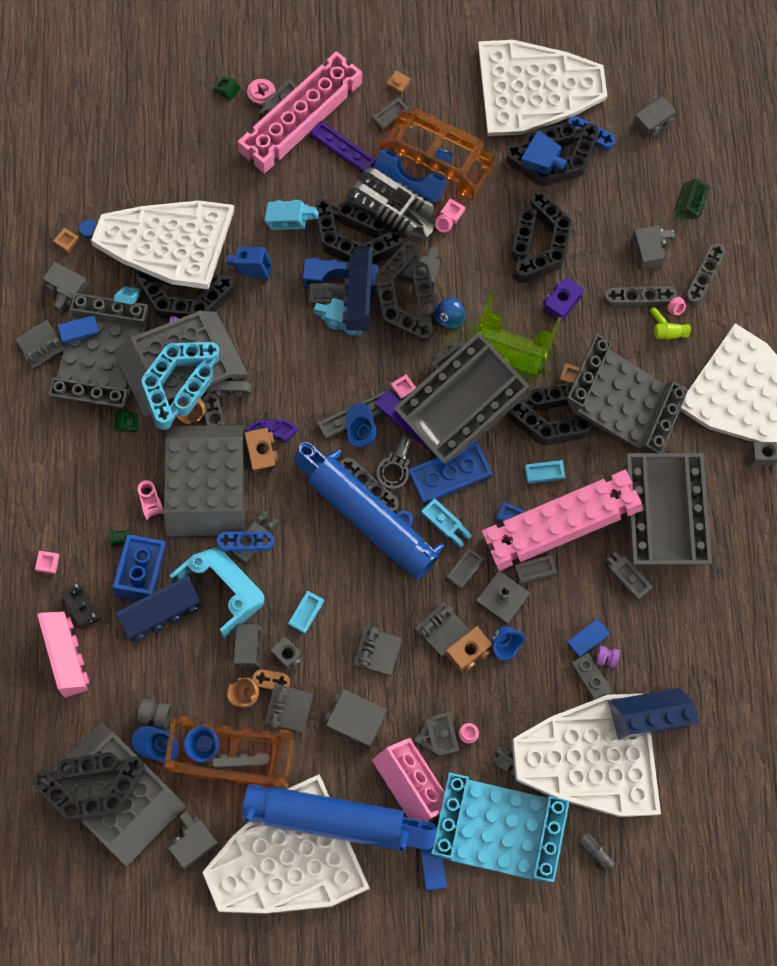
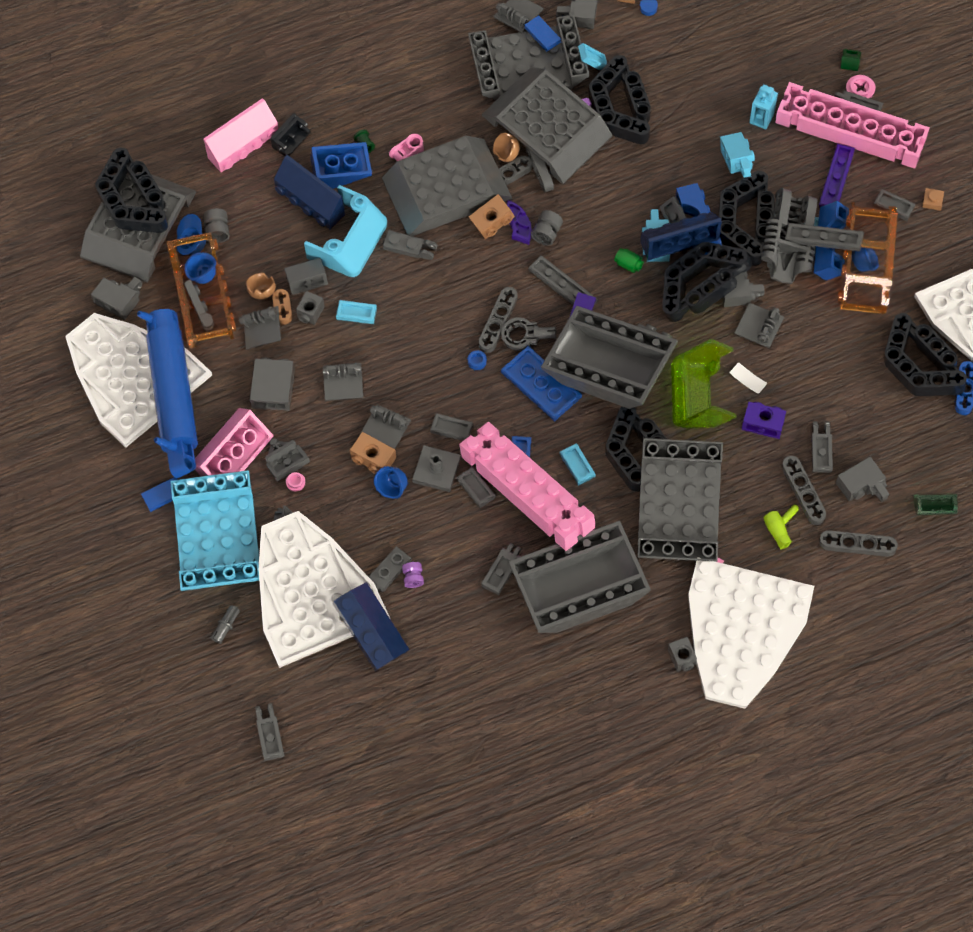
camera: 75 degrees right, 5 degrees down
(47, 562) = (319, 96): bright pink plate -> none
(126, 421) = (475, 106): dark green slope -> none
(167, 240) = (664, 68): white piece -> none
(204, 365) = (491, 123): medium azure piece -> none
(231, 545) = (400, 228): blue beam -> none
(251, 173) = (763, 107): none -> medium azure hinge
(251, 262) = (673, 135): blue torso -> none
(290, 403) = (547, 227): none -> dark grey wheel
(356, 348) = (629, 260): none -> green brick
(360, 425) = (550, 290): blue piece -> none
(366, 511) = (467, 324): blue piece -> none
(403, 387) = (609, 310): bright pink plate -> none
(414, 175) = (824, 237): none -> dark grey tile
(443, 223) = (796, 289): bright pink plate -> none
(445, 522) = (489, 393): medium azure hinge -> none
(450, 313) = (703, 327): blue helmet -> none
(453, 210) = (814, 292): bright pink plate -> none
(465, 267) = (759, 324): none -> dark grey hinge
(513, 298) = (748, 378): none -> white sticker
(526, 267) = (788, 374): black piece -> none
(542, 155) = (907, 342): blue torso -> none
(588, 638) = (426, 554): blue tile -> none
(605, 265) = (821, 449): none -> dark grey hinge
(676, 306) = (807, 525): bright pink plate -> none
(724, 847) = (269, 734): none -> dark grey hinge

